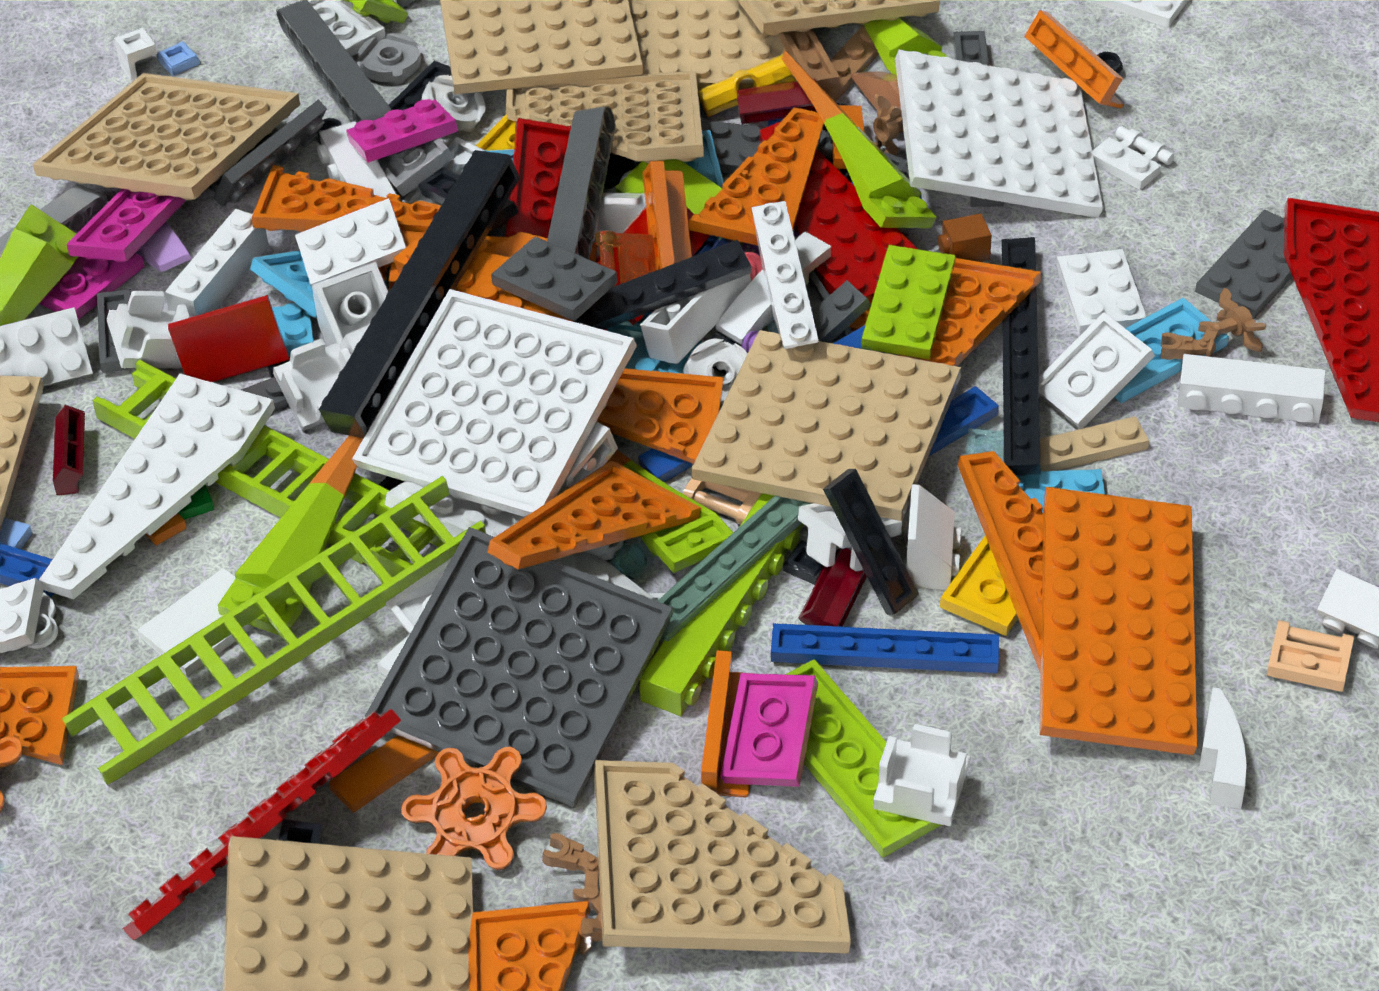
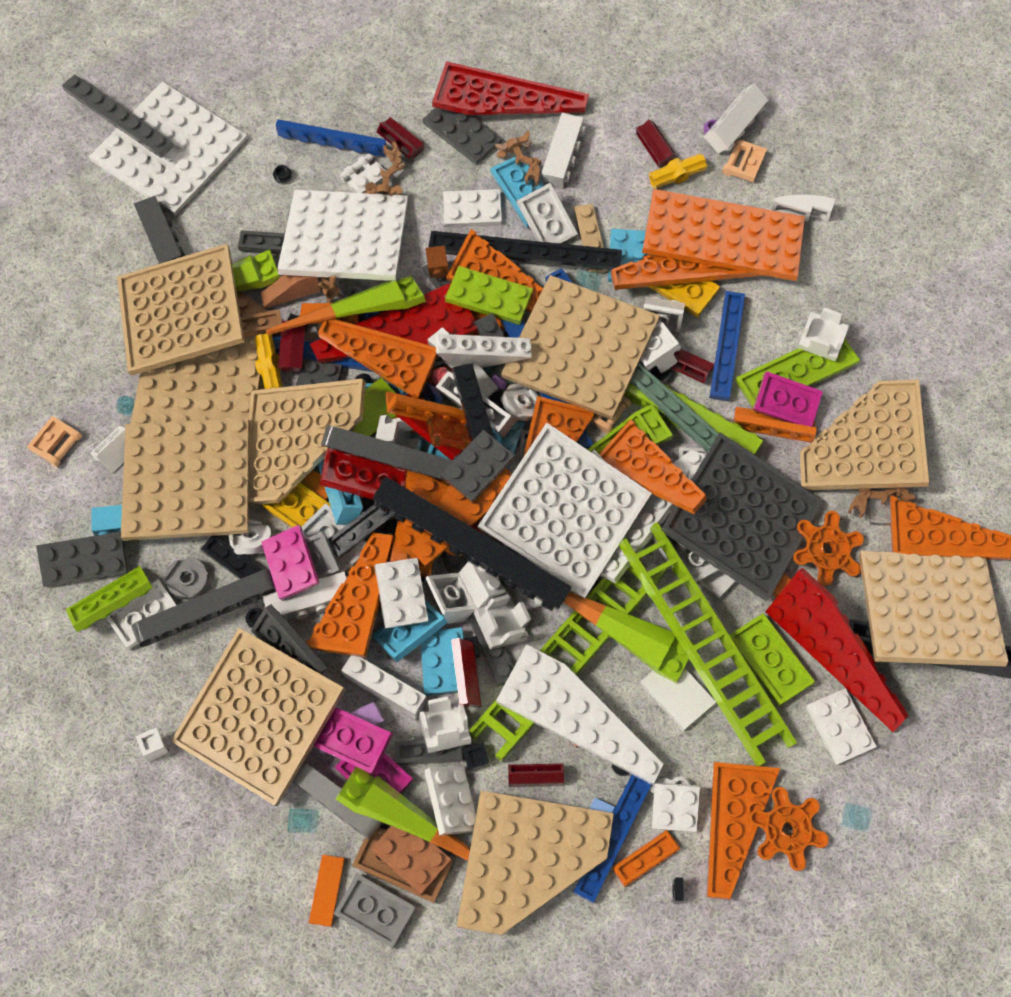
camera: 85 degrees left, 20 degrees up
(15, 209) = (300, 820): none -> clear light blue tile
(104, 382) = (476, 756): none -> black plate
(135, 850) = (841, 727): none -> white plate
(177, 58) = (152, 719): light blue tile -> none
(260, 740) = (771, 660): none -> lime plate
(871, 541) = (677, 333): black tile -> none
(1075, 59) = (282, 186): orange panel -> none
(1170, 176) = (384, 188): none -> medium nougat piece
(1188, 115) = (330, 137): none -> blue plate
(1217, 189) = (405, 141): none -> dark red piece
(1254, 553) = (677, 171): none -> yellow piece
(1310, 519) = (655, 143): none -> dark red piece

